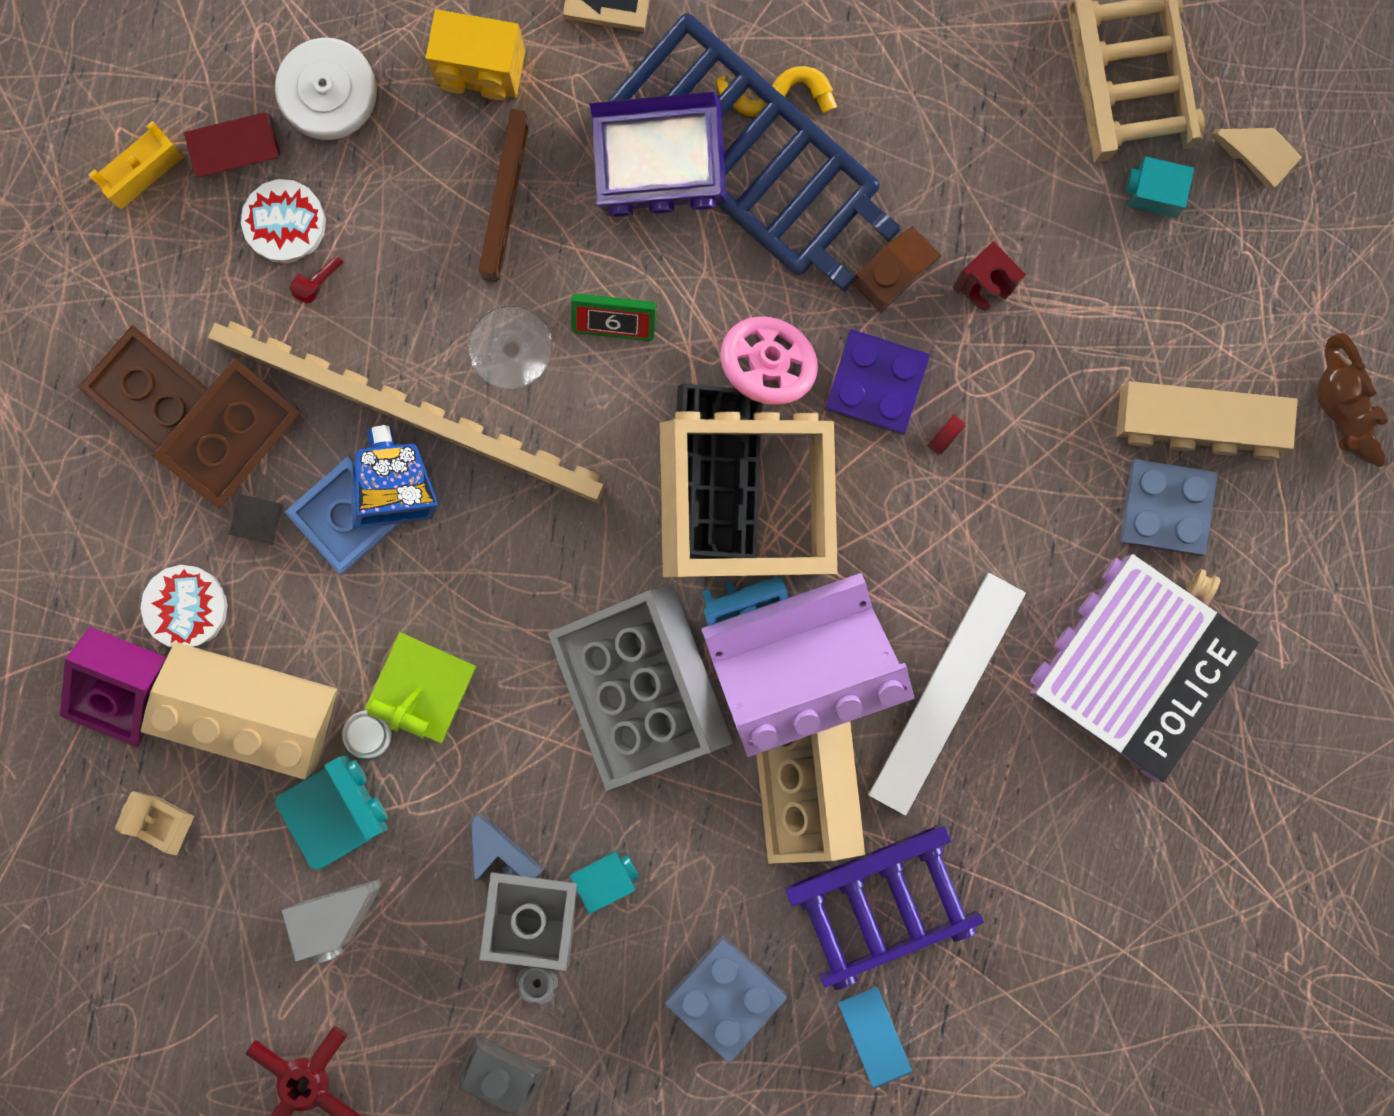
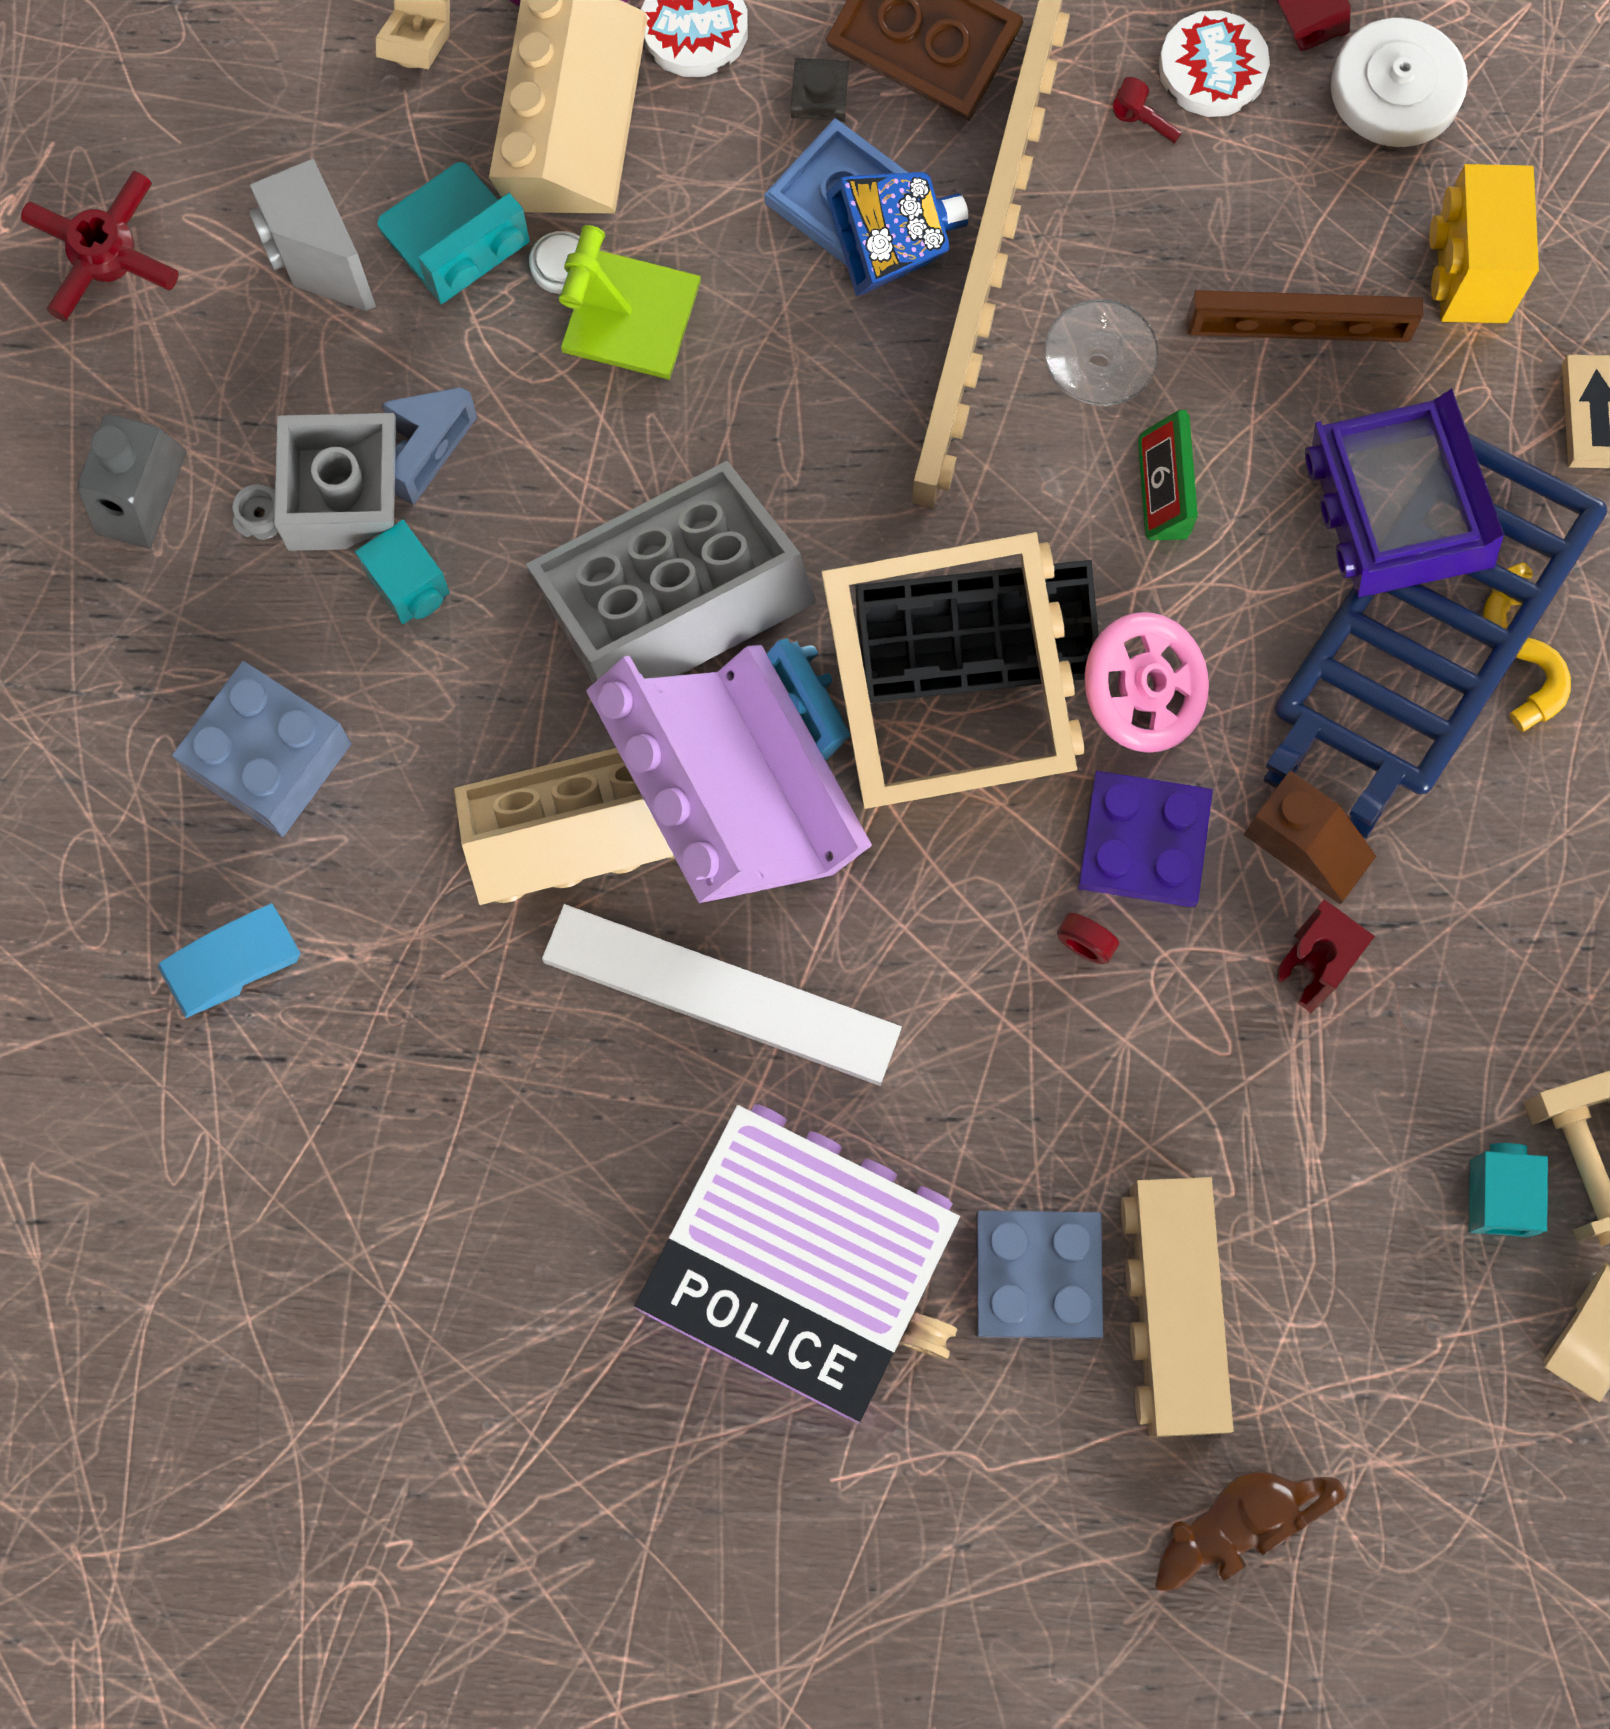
camera: 80 degrees right, 10 degrees down
(889, 864) = (470, 943): dark purple fence -> none

